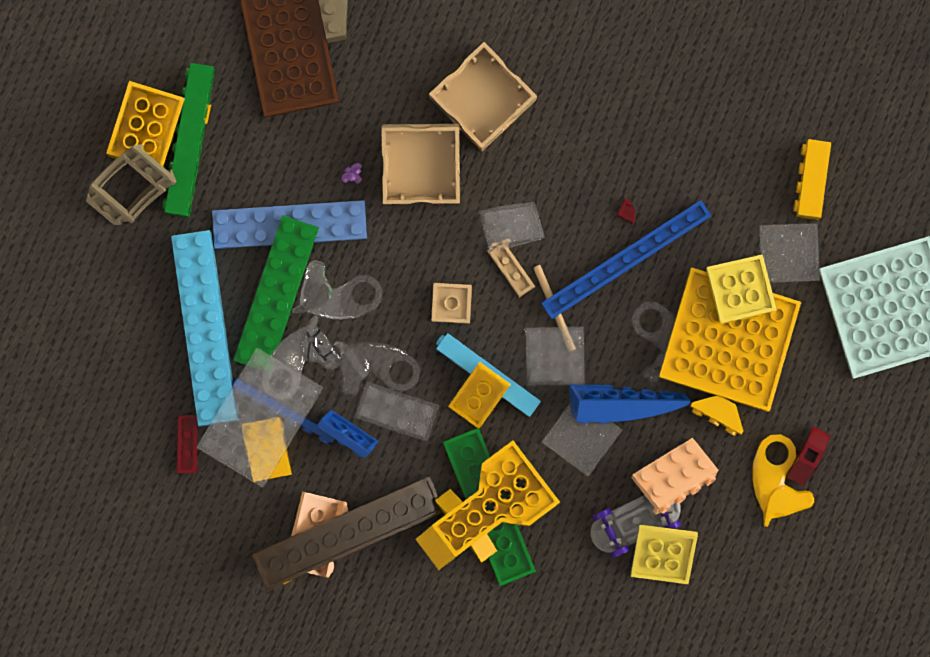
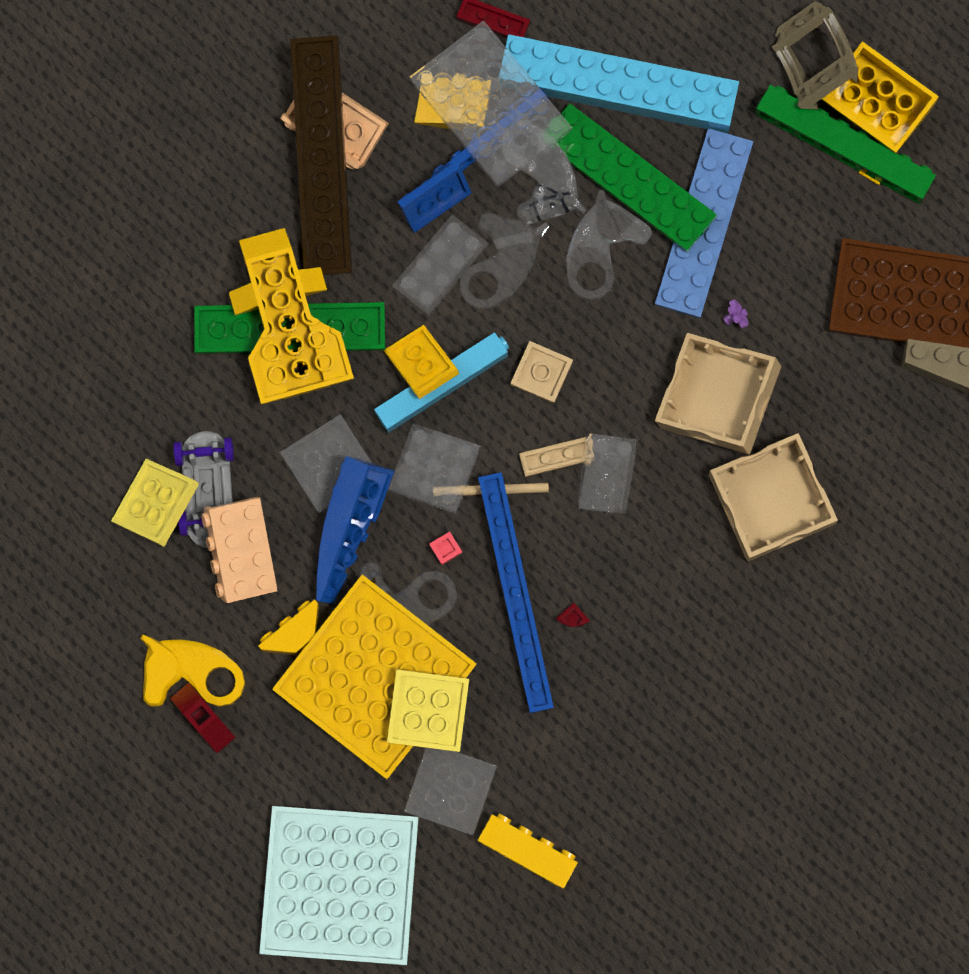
camera: 110 degrees right, 5 degrees down
(612, 324) = (445, 548): none -> coral plate

